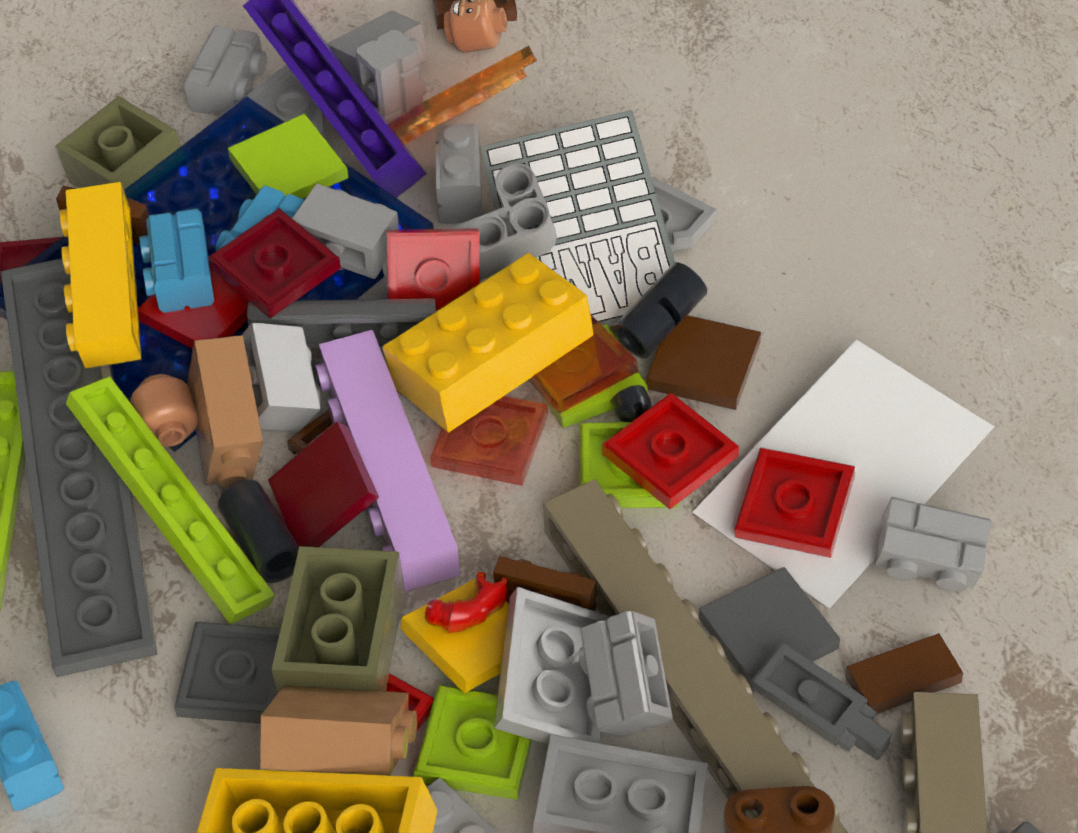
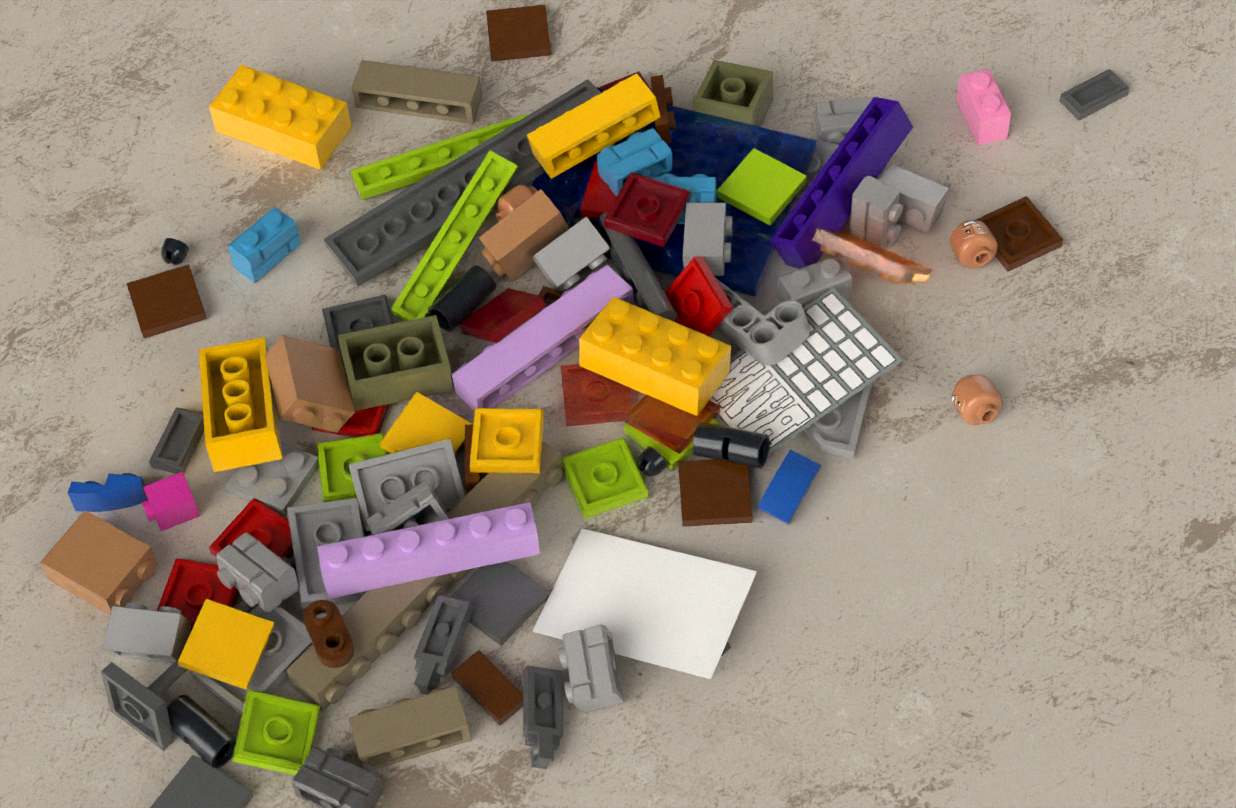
camera: 70 degrees right, 5 degrees up
(466, 614) = (443, 430): red piece -> none
(548, 527) = (506, 440): none -> yellow tile
(670, 450) = (615, 493): red tile -> none
(693, 88) = (976, 399): none -> nougat head
(701, 657) = (428, 550): none -> lavender brick
(738, 283) = (788, 486): none -> blue slope
(795, 502) = (603, 580): red tile -> none
(975, 621) = (542, 713): none -> dark grey hinge

